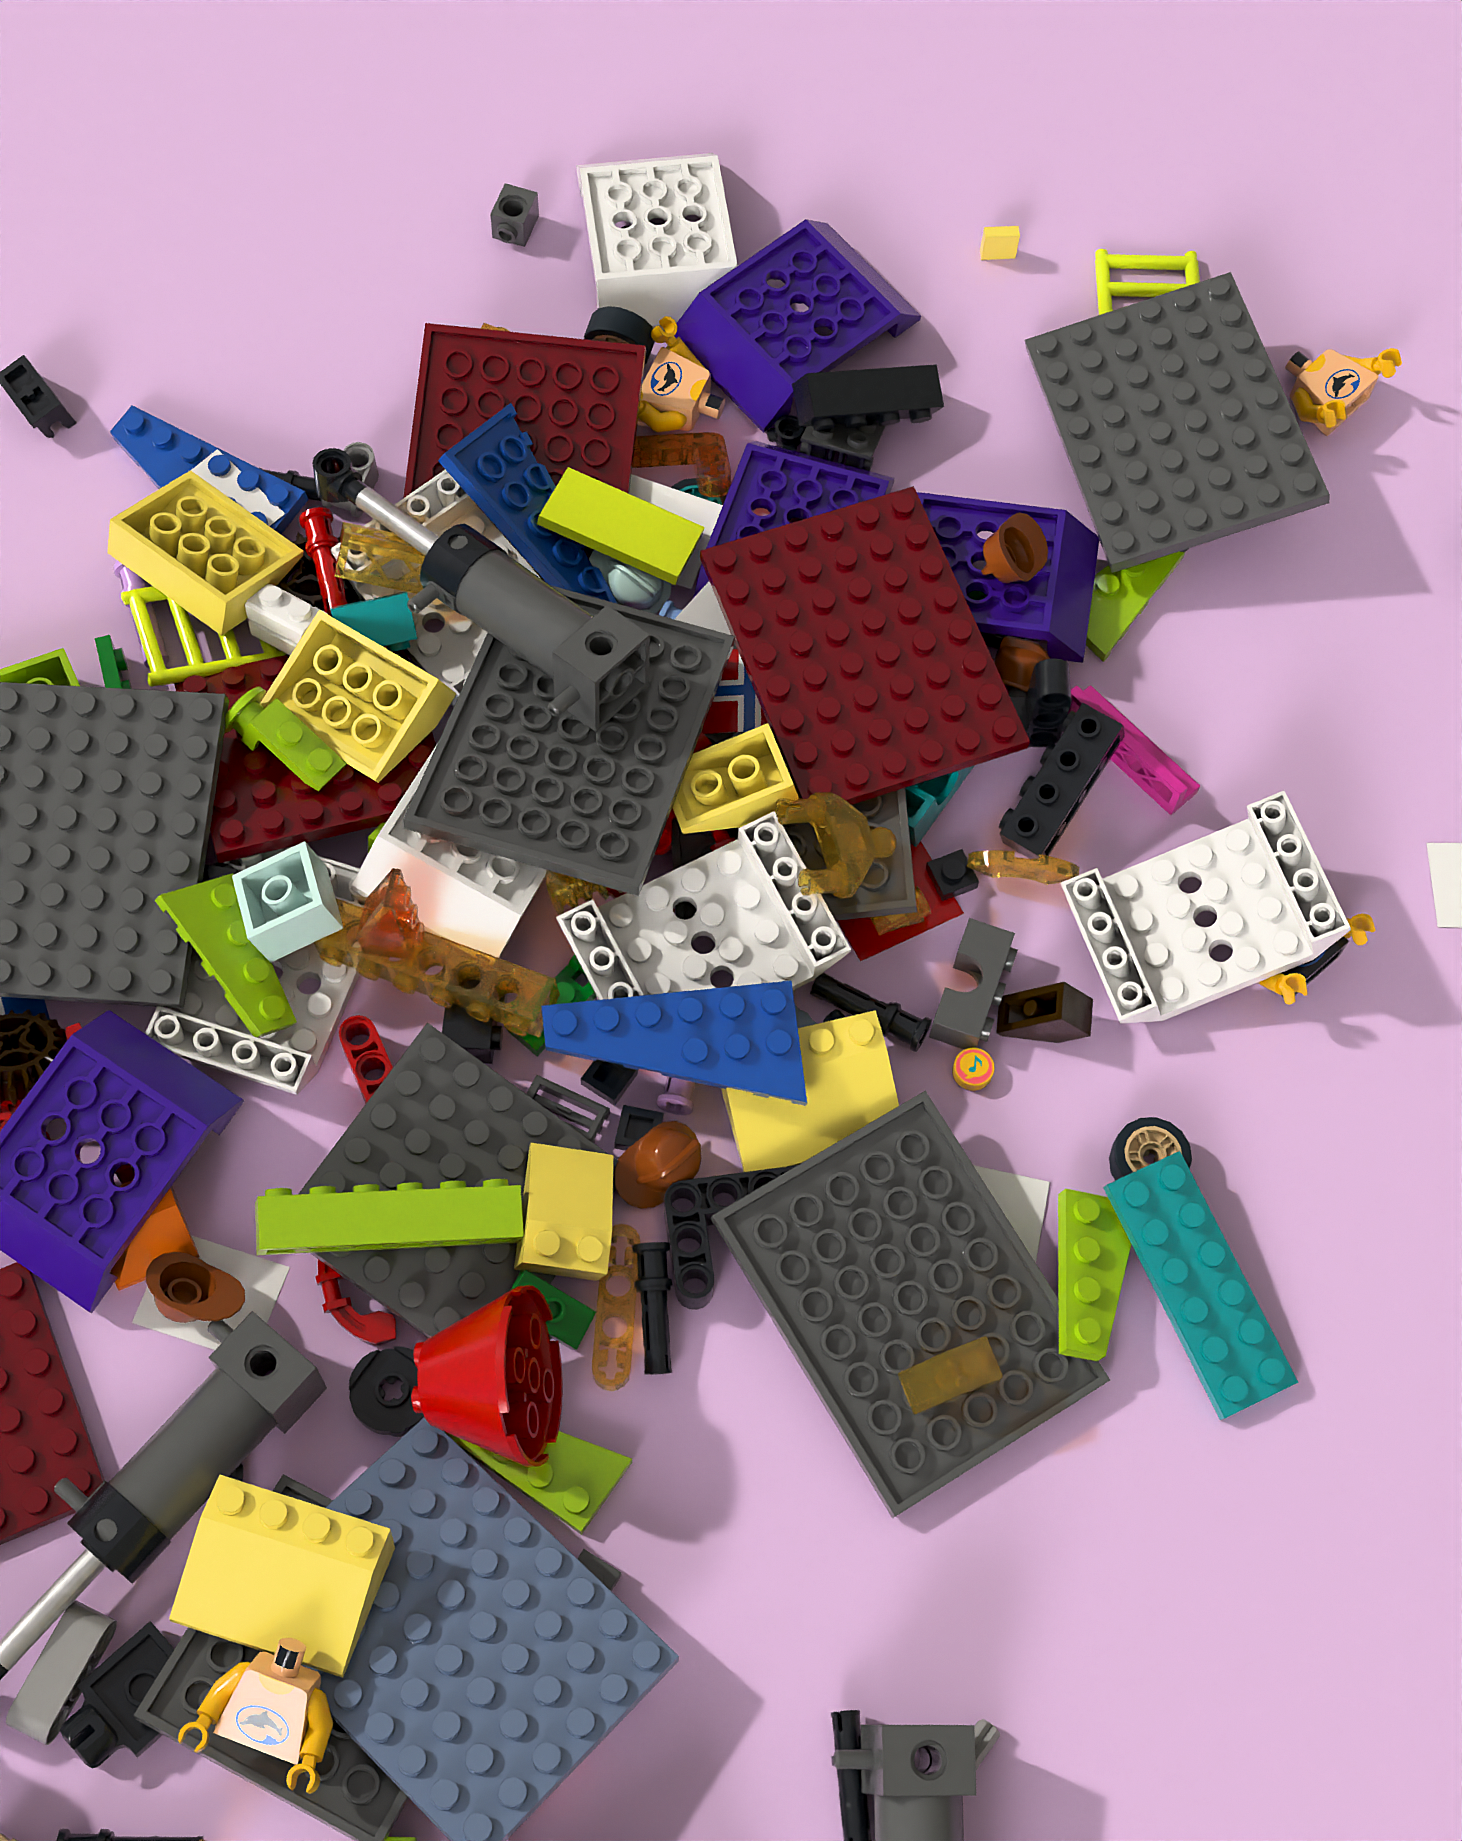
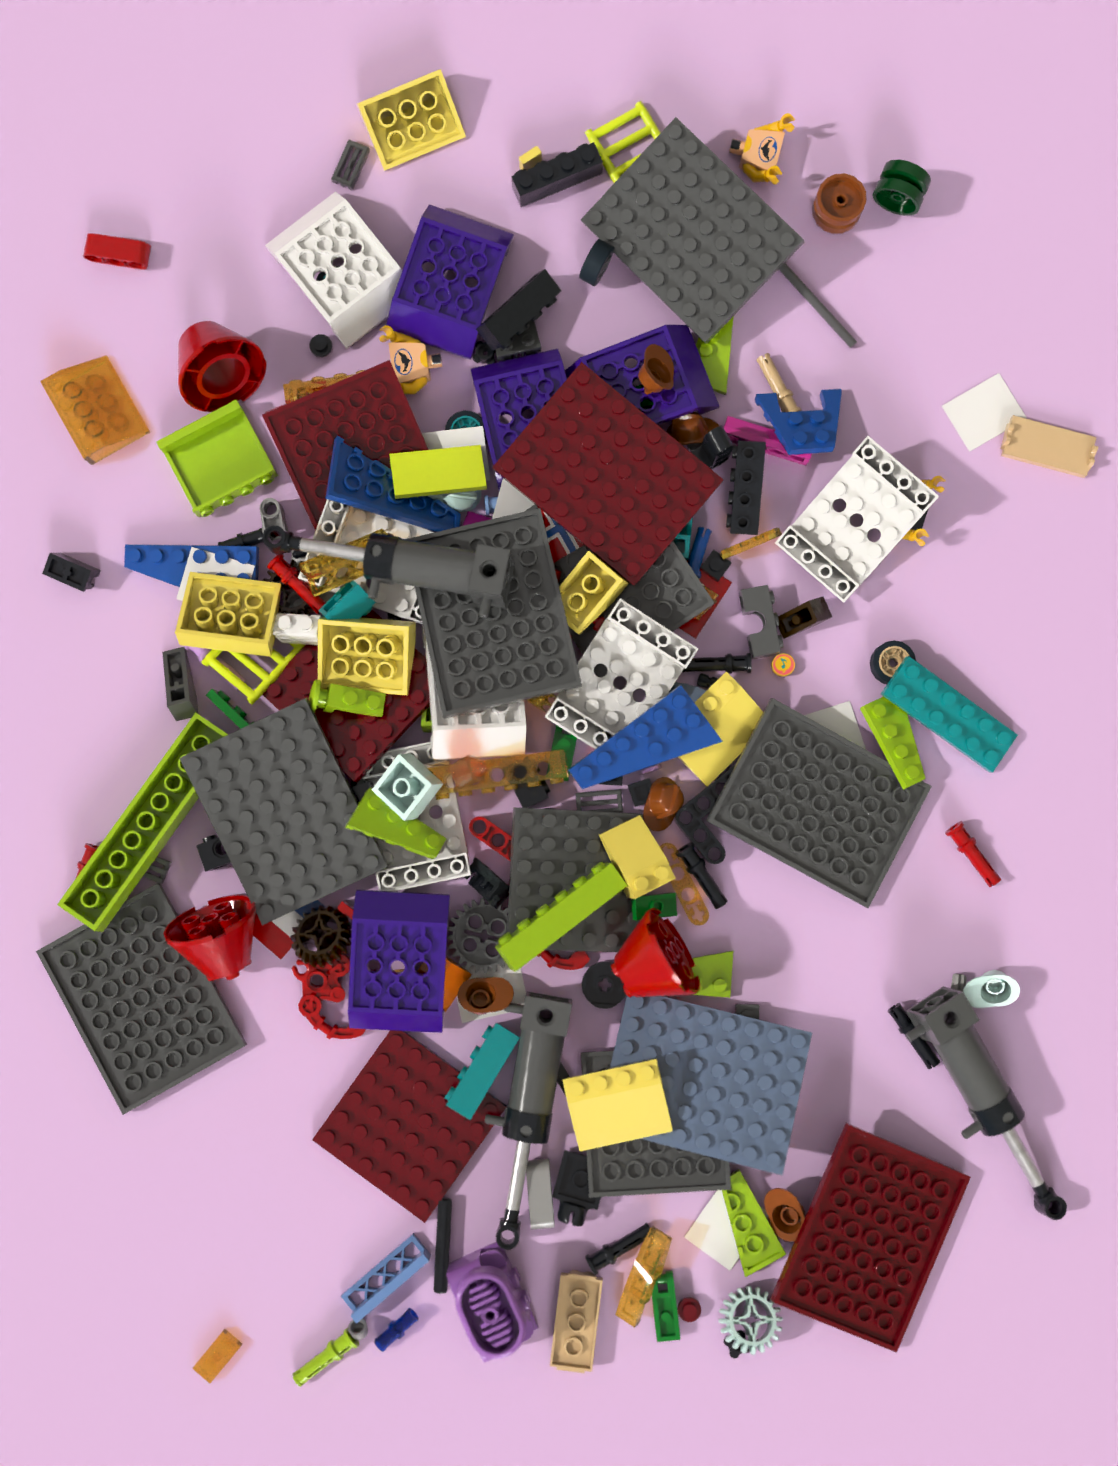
camera: 20 degrees left, 20 degrees up
(70, 611) = (179, 684): none -> dark grey slope
(104, 1405) = (482, 1071): none -> teal brick
(215, 232) = (95, 408): none -> clear yellow slope
(228, 1228) = (479, 956): none -> dark grey gear
(271, 1708) = (651, 1163): torso -> none
(315, 1125) = (488, 884): none -> black hinge
(333, 369) = (217, 459): none -> lime panel
(380, 78) = (117, 251): none -> red beam
(406, 284) = (217, 366): none -> red cone
(514, 215) = (248, 292): dark grey brick -> none
(568, 313) = (320, 345): none -> black plate
(620, 326) = (361, 350): black wheel -> none
(702, 449) = (446, 397): clear orange beam -> none
(757, 139) = (344, 181): none -> dark grey tile
(843, 839) = (664, 593): clear yellow connector -> none
(868, 120) = (411, 119): none -> light yellow slope
(939, 837) = (698, 550): none -> blue pin
(950, 1375) = (861, 831): clear yellow slope -> none
(1014, 397) = (596, 262): none -> black wheel
(1026, 275) = (557, 174): none -> black brick
(1028, 1777) = (991, 990): none -> light aqua piece
(1119, 1512) = (967, 845): none -> red pin
(1188, 701) = (777, 385): none -> tan pin
(1195, 755) = (804, 430): none -> blue wing
(1281, 537) = (817, 305): none -> dark grey bar
(1410, 500) = (839, 203): none -> dark orange wheel

